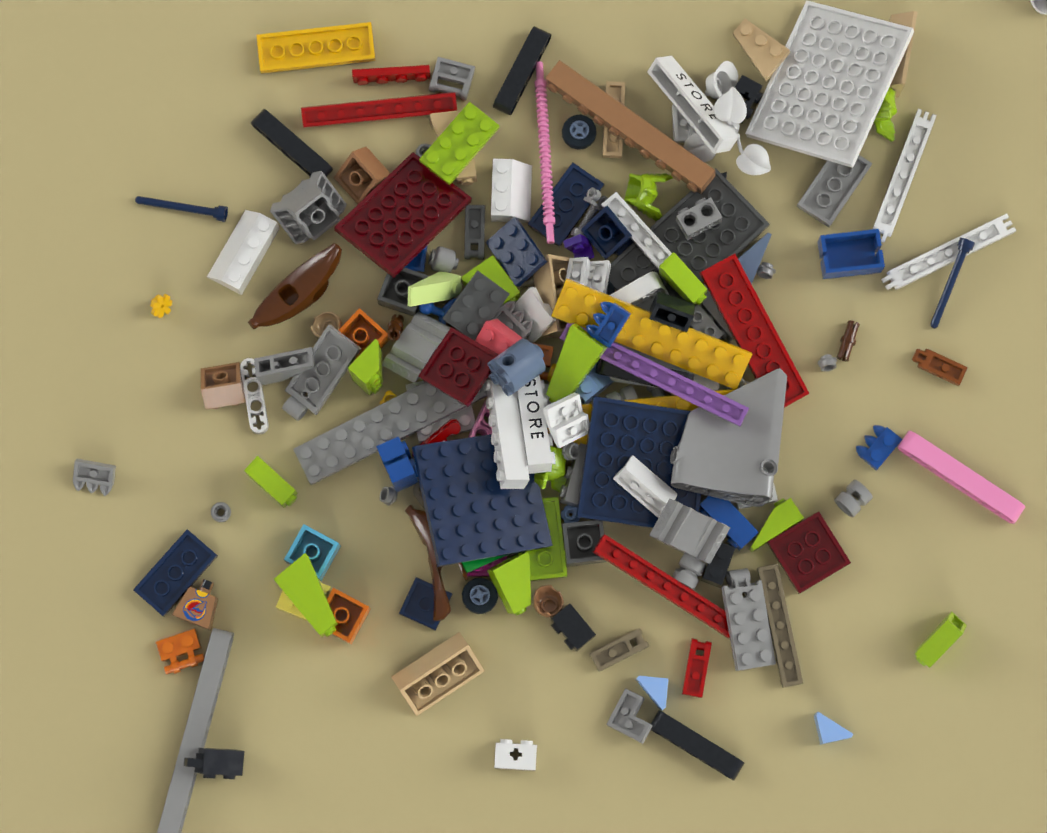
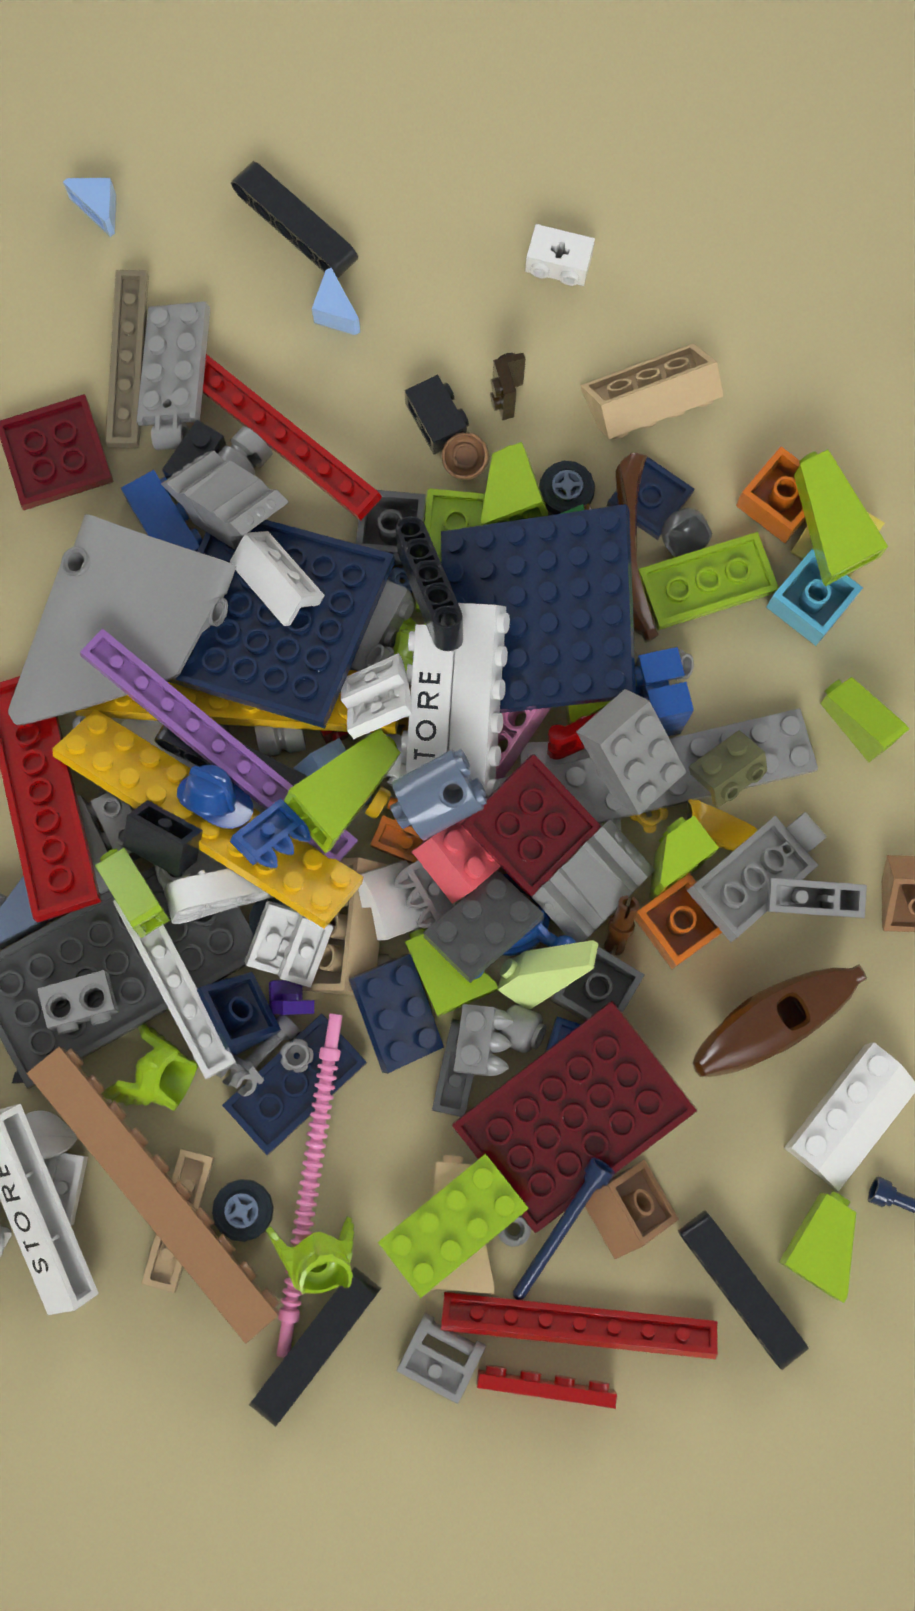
camera: 170 degrees left, 0 degrees up
(250, 177) = (824, 1246): none -> lime slope
(254, 396) = (873, 868): white beam -> none
(309, 208) = (730, 1164): light grey slope -> none
(315, 47) = (671, 1471): yellow plate -> none
(323, 320) = (736, 958): tan hair -> none
(347, 403) = (722, 827): none -> yellow piece
(347, 431) = (730, 767): none -> olive bracket
(380, 553) = (708, 580): none -> lime plate
(384, 183) = (596, 1176): none -> dark blue piece
(399, 580) = (685, 532): none -> dark grey hair
(408, 416) = (632, 751): none -> light grey brick
(465, 246) = (480, 1040): none -> light grey plate
(511, 190) = (382, 1126): white slope -> none
(529, 111) = (318, 1260): none -> lime helmet
(534, 648) = (507, 374): none -> dark brown bracket
(554, 499) = (429, 584): none -> black beam
(568, 212) = (288, 1051): none -> light grey plate
(618, 650) = (374, 371): dark tan plate -> none
(625, 720) = (389, 273): light grey plate -> none
(648, 342) = (214, 797): none -> blue piece
(696, 669) = (266, 323): red plate -> none
(780, 519) = (91, 497): lime slope -> none

